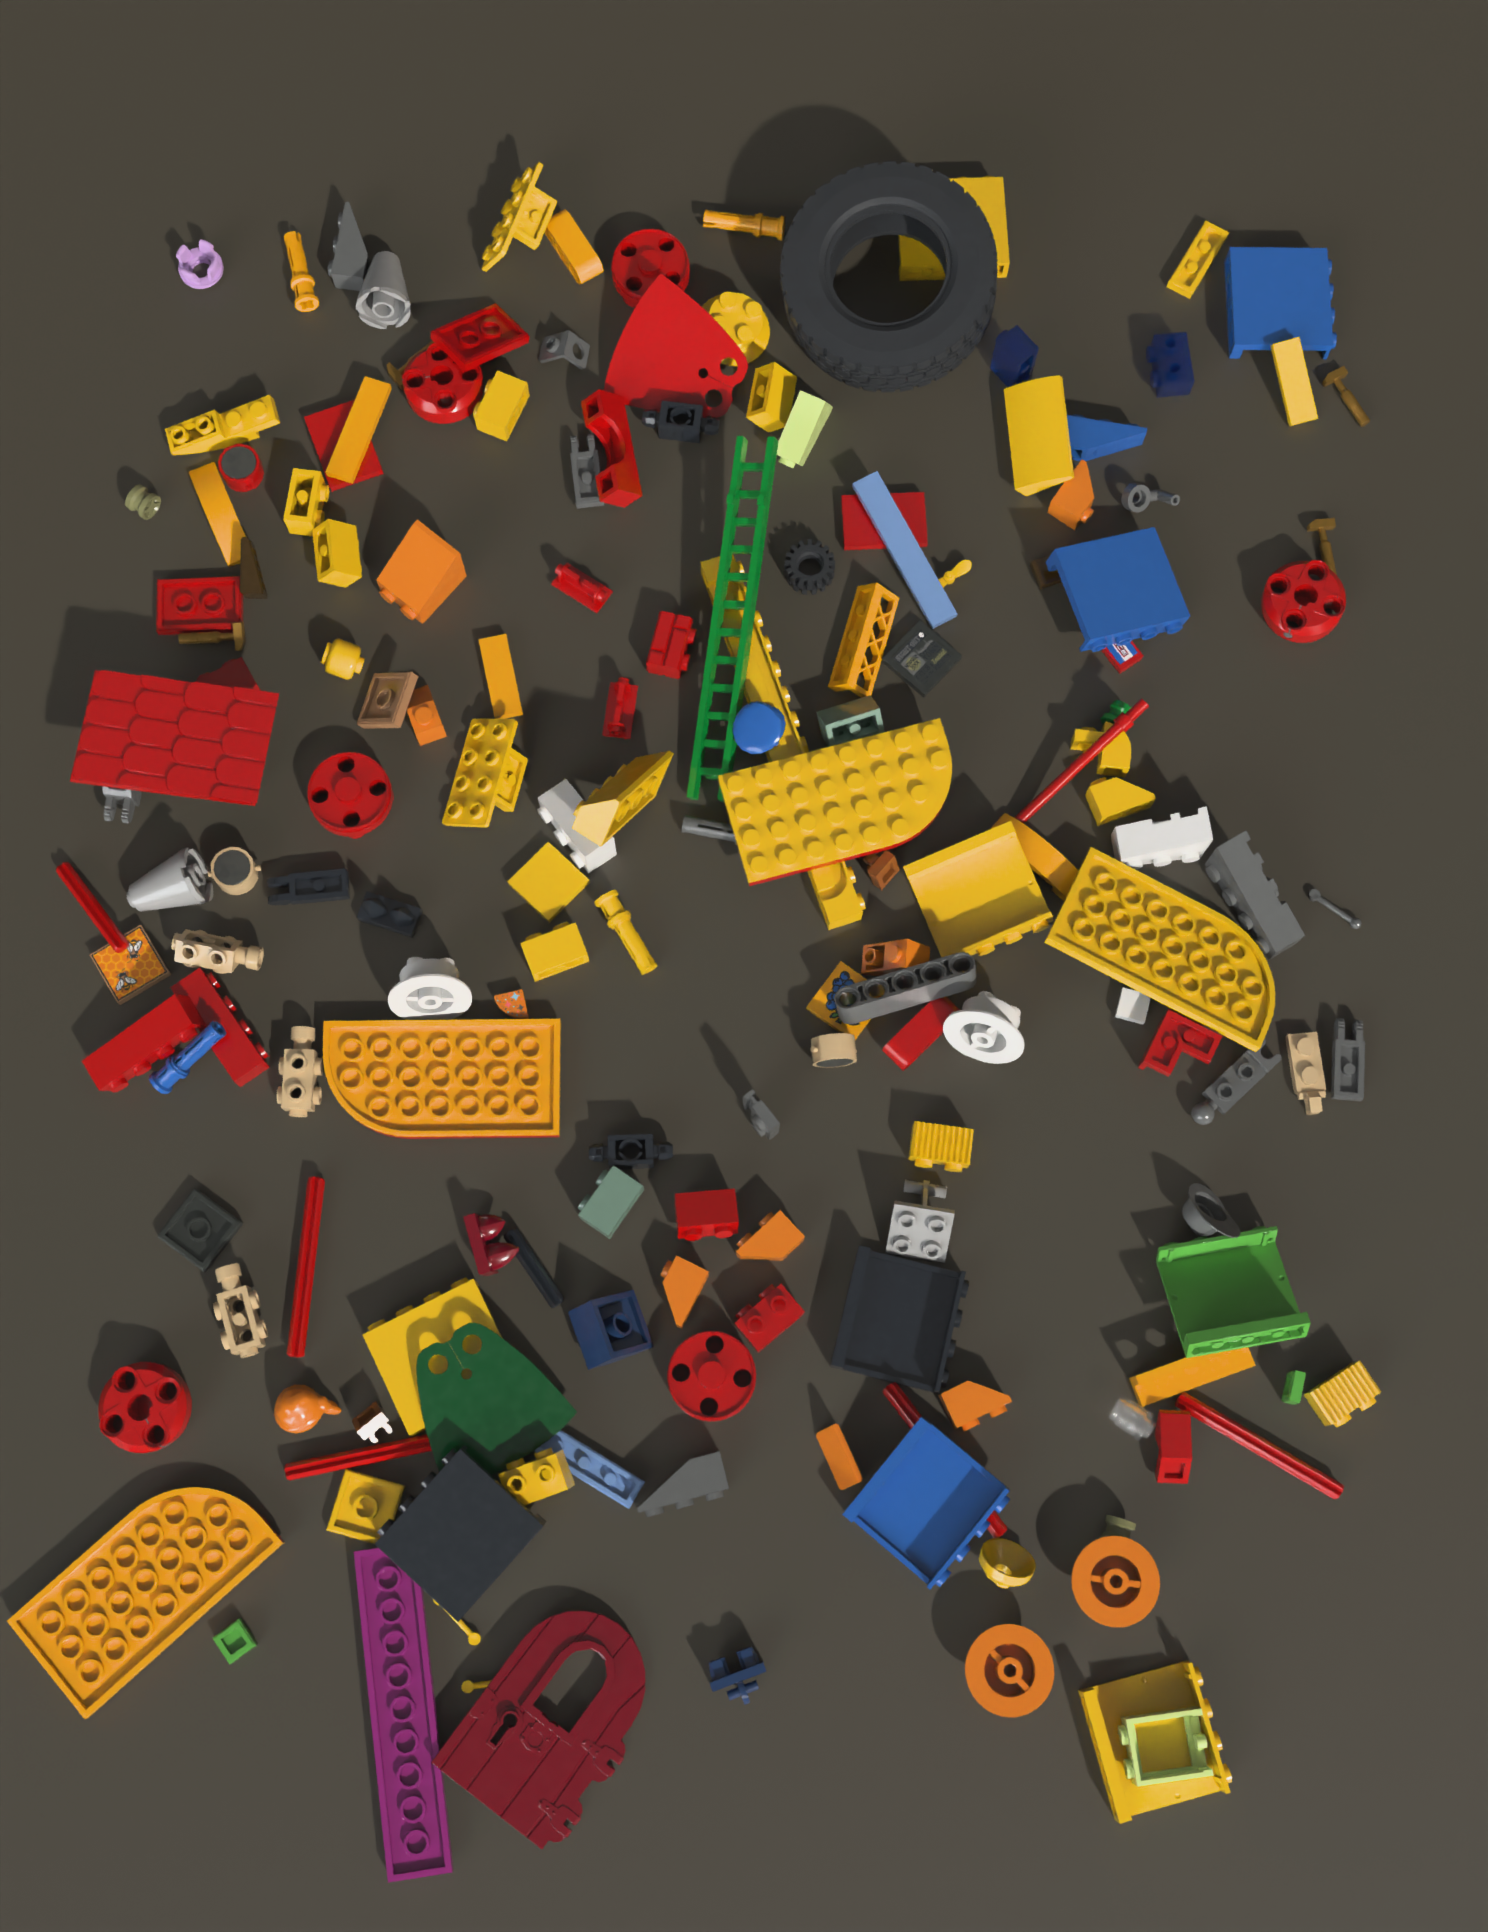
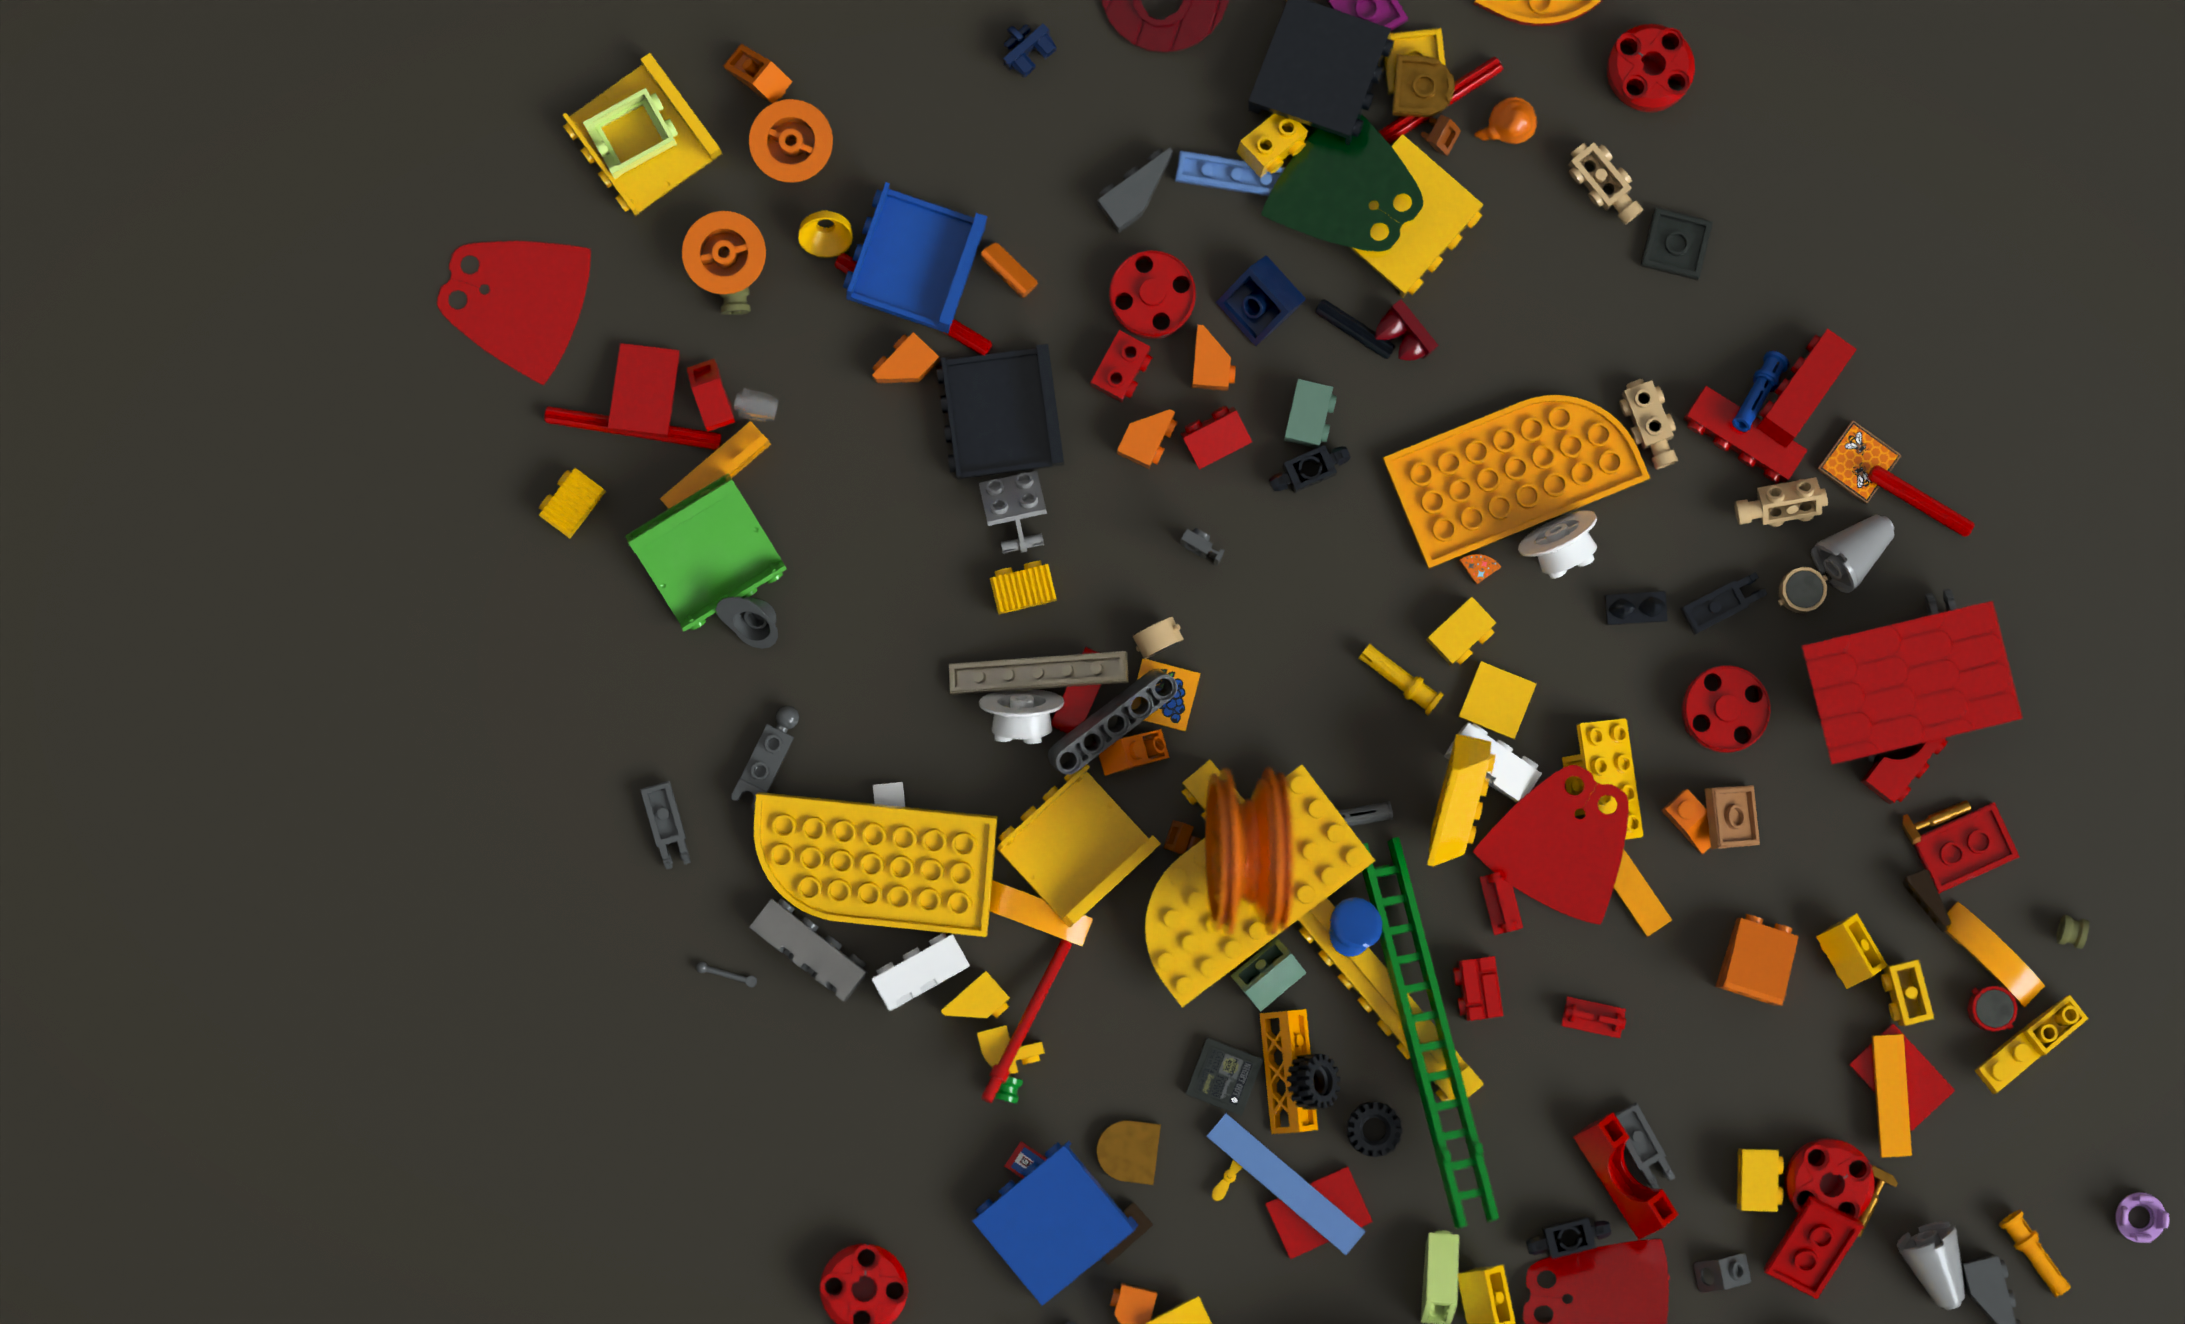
camera: 155 degrees right, 10 degrees up
(305, 1267) = (1564, 249): red axle -> none
(342, 659) = (1796, 844): yellow head -> none
(370, 1477) = (1421, 86): none -> pearl gold tile
(555, 724) = (1554, 854): none -> red piece
(834, 799) = (1249, 851): none -> orange wheel
(847, 619) = (1316, 1094): none -> black tyre
(956, 1060) = (1038, 673): none -> dark tan tile
(1016, 1757) = (758, 73): none -> orange slope
(1028, 629) = (1129, 1151): none -> pearl gold tile
(1178, 1035) = (840, 777): red panel -> none
(1237, 1476) = (643, 390): none -> red tile
(1293, 1387) = (619, 491): bright green tile -> none
(1306, 1070) = (702, 800): tan hinge -> none
(1318, 1613) = (530, 301): none -> red piece

